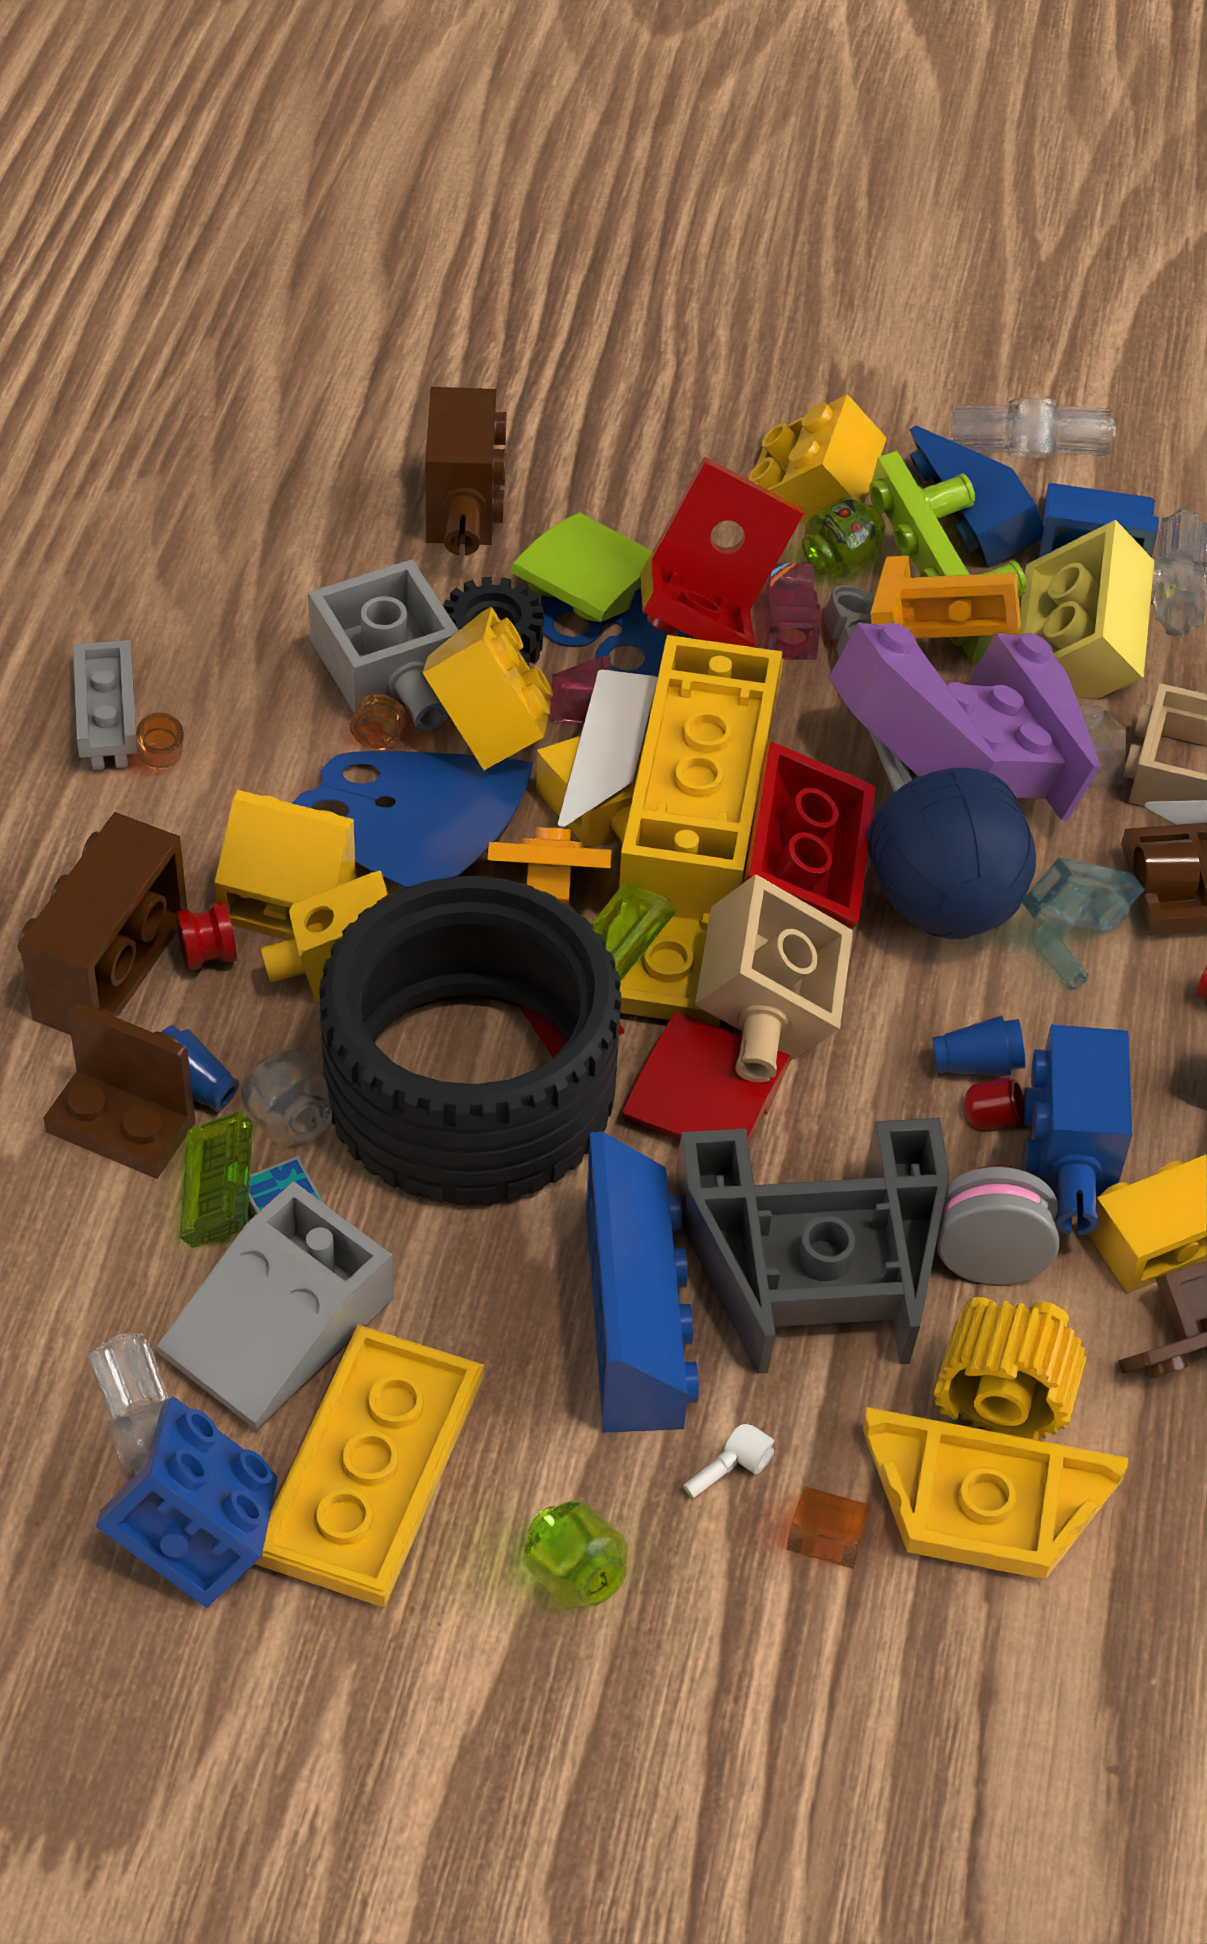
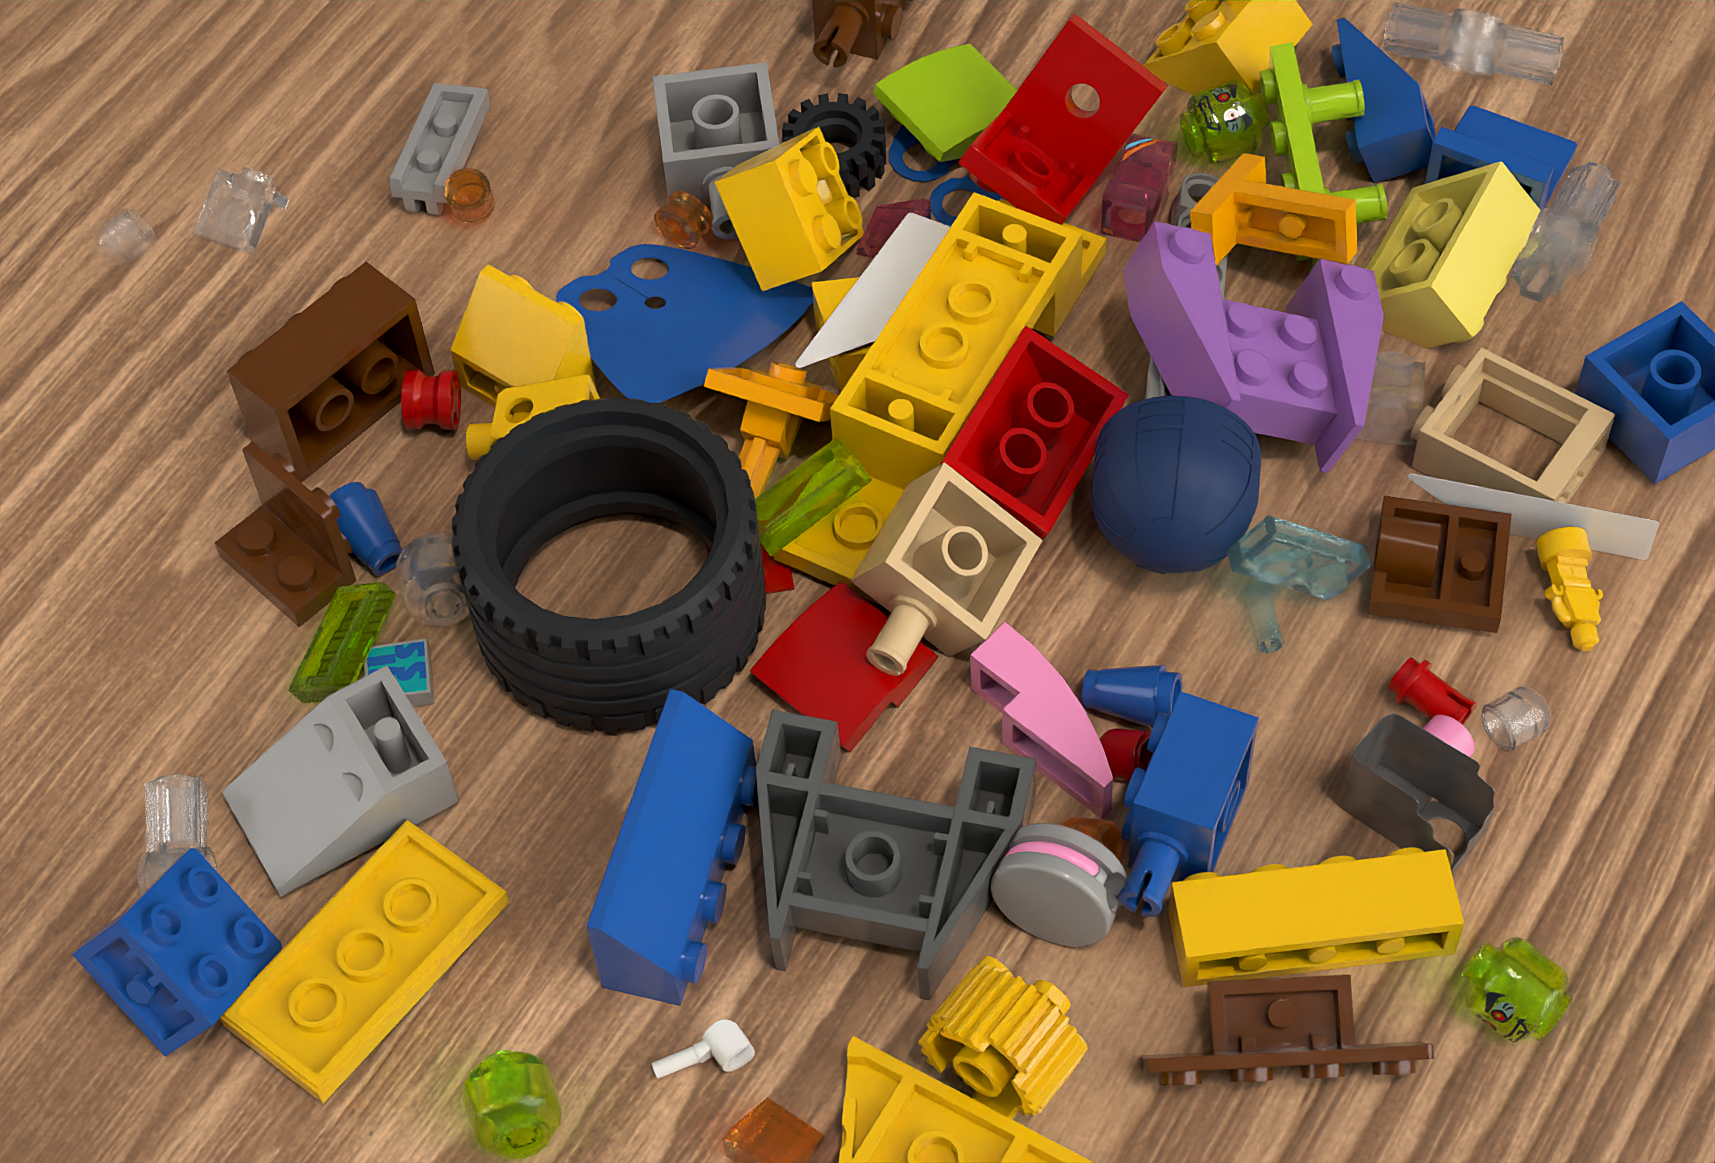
camera: 25 degrees right, 5 degrees up
(913, 1085) = (1042, 717): none -> bright pink slope

